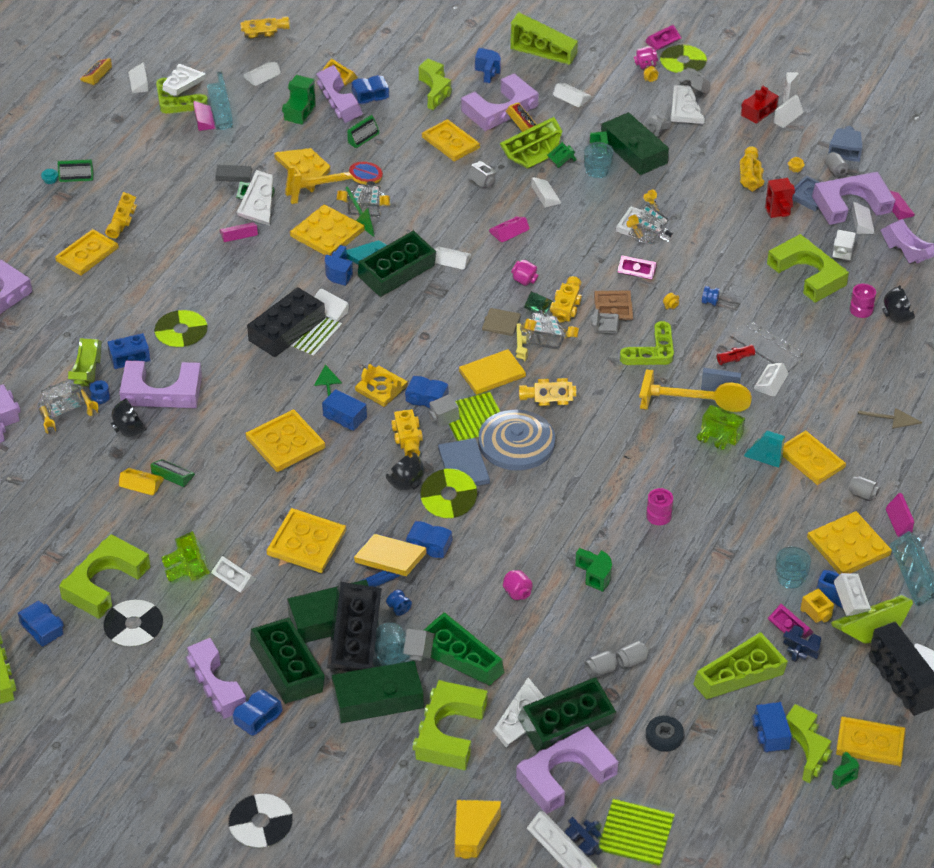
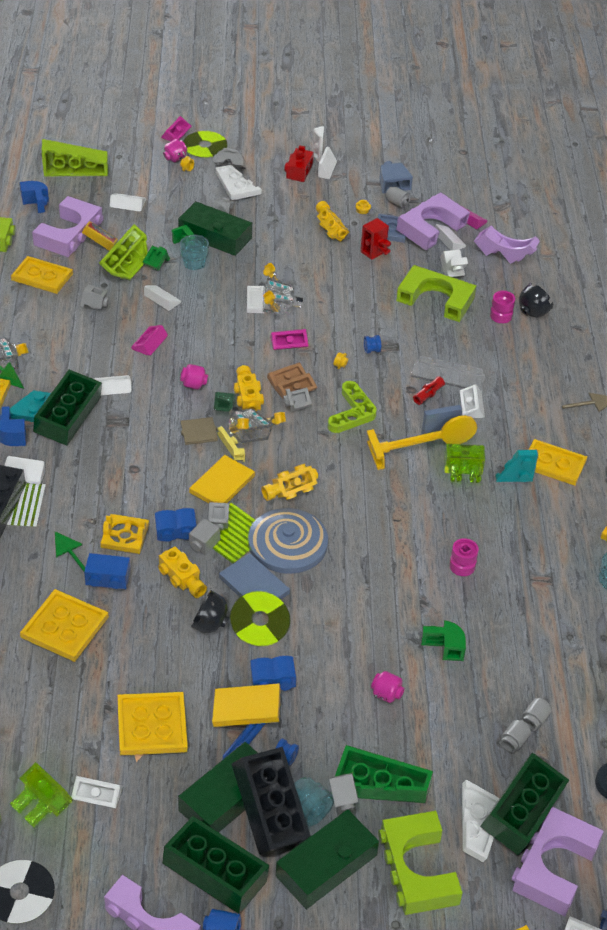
camera: 30 degrees left, 0 degrees up
(467, 397) = (219, 514): none -> light grey bracket

